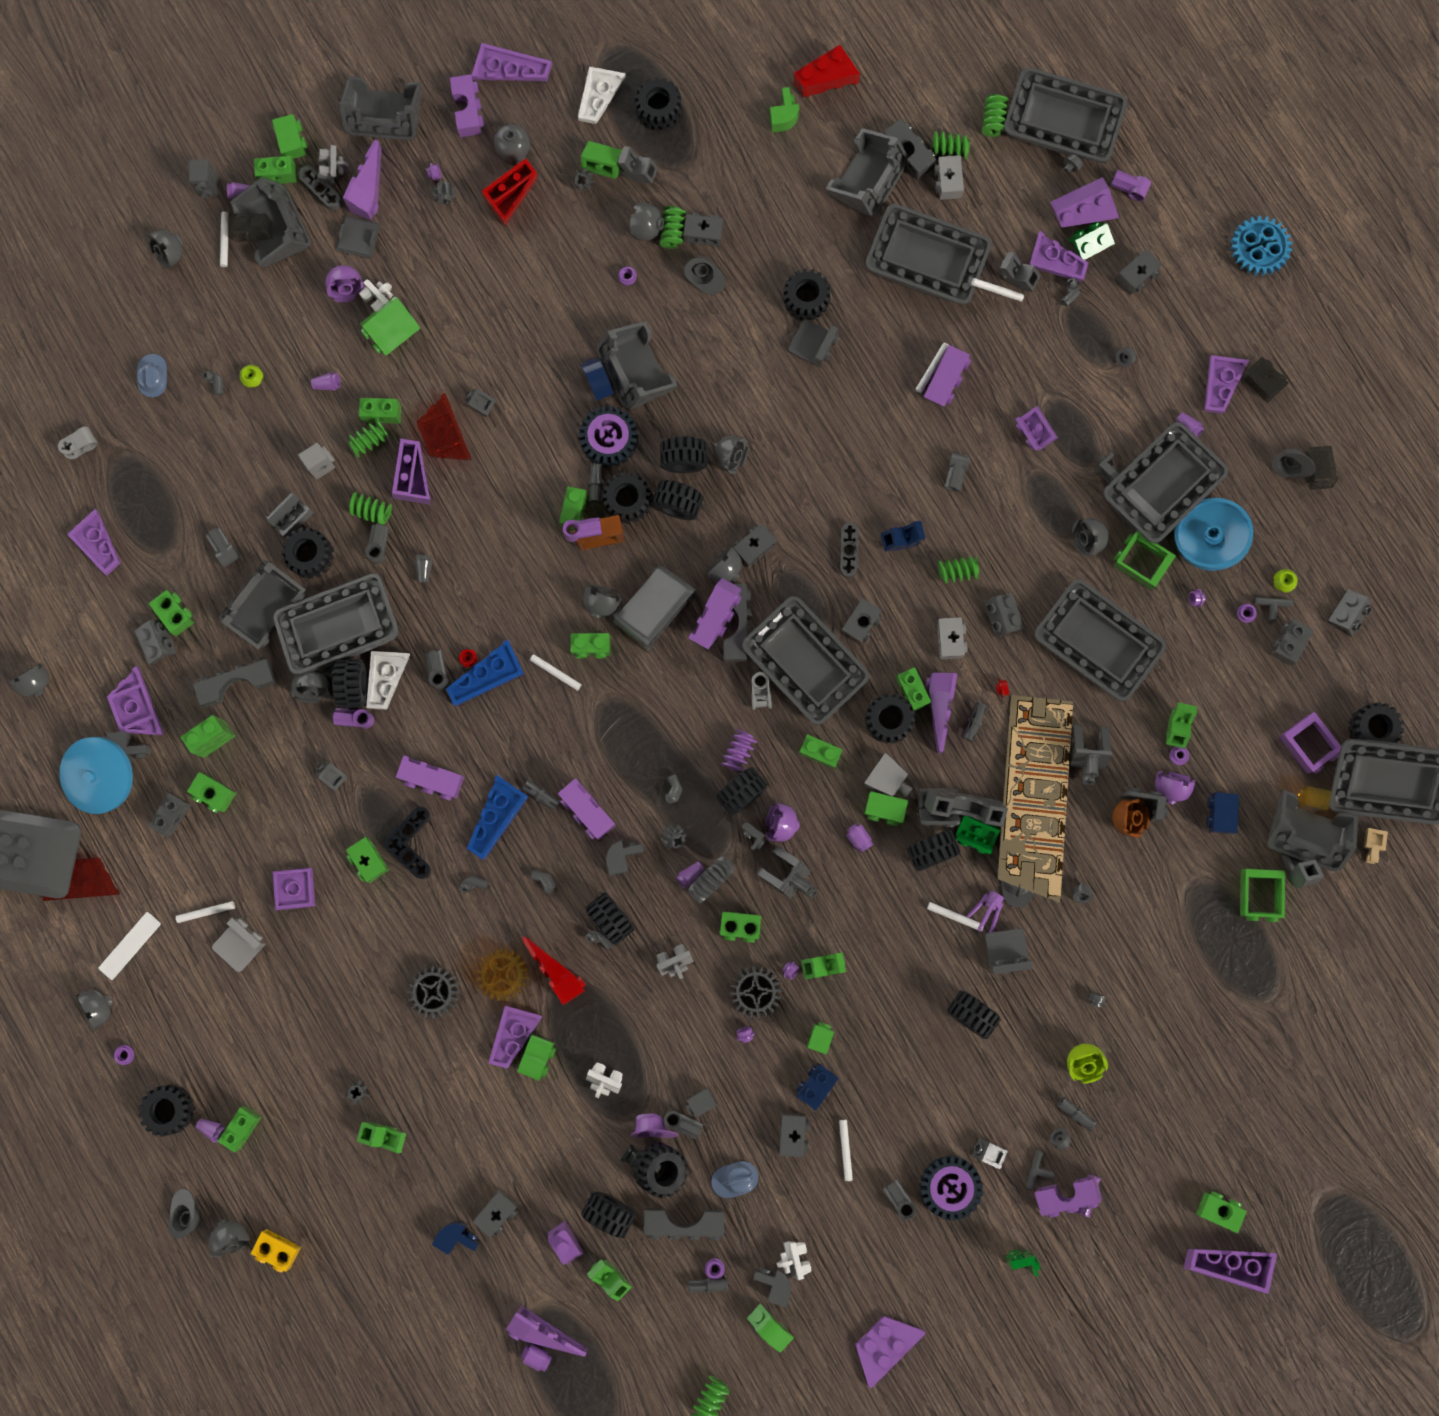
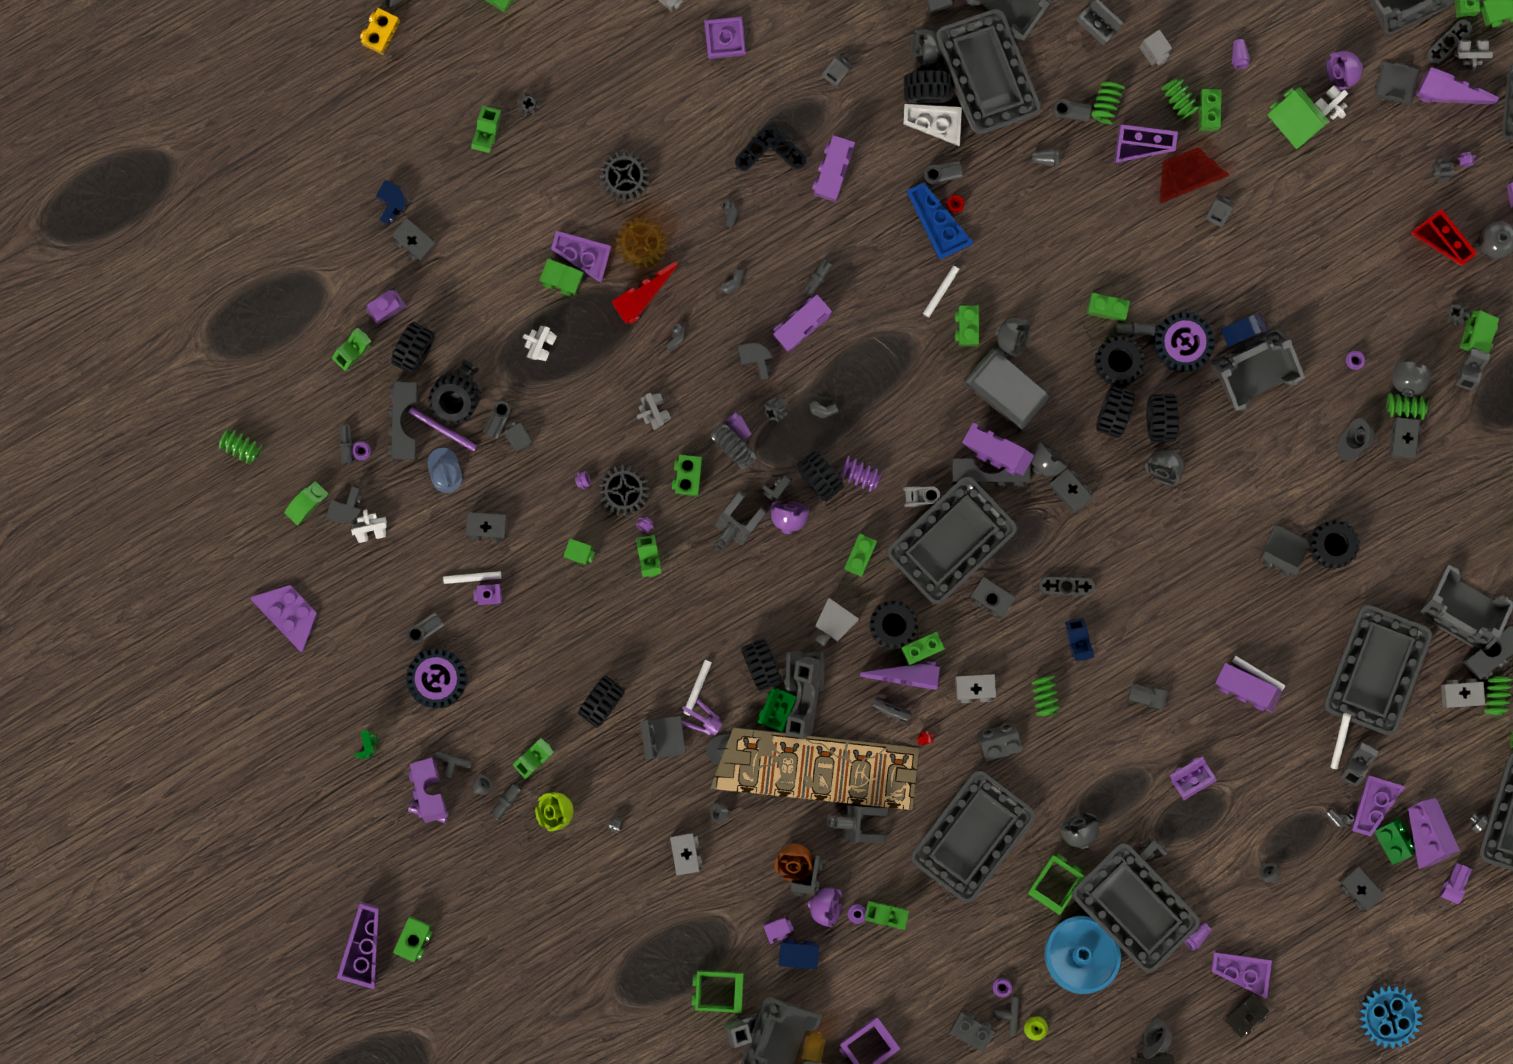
camera: 85 degrees right, 5 degrees up
(297, 542) = (1061, 25): black tyre -> none
(351, 717) = (894, 90): medium lavender piece -> none
(376, 865) = (748, 118): bright green brick -> none
(501, 807) = (804, 239): blue wing -> none
(535, 1330) = (306, 277): medium lavender wedge -> none
(535, 1358) = (279, 280): medium lavender brick -> none
(584, 529) = (1082, 318): medium lavender piece -> none
(609, 918) = (695, 346): black tyre -> none
(611, 534) = (1081, 332): dark orange window -> none
(651, 1126) = (496, 389): medium lavender piece -> none
(692, 1181) = (443, 429): none -> medium lavender bar
(816, 1086) = (532, 549): dark blue brick -> none
(859, 837) = (774, 593): medium lavender brick -> none
(860, 1126) = (495, 597): none -> medium lavender brick
(885, 808) = (804, 619): bright green brick -> none
(989, 1153) = (468, 716): bracket -> none
(1032, 1085) = (533, 758): none -> bright green brick
(1136, 930) = (684, 865): none -> light grey brick
(1196, 598) = (1017, 937): medium lavender plate -> none
(1197, 834) = (778, 929): none -> medium lavender brick

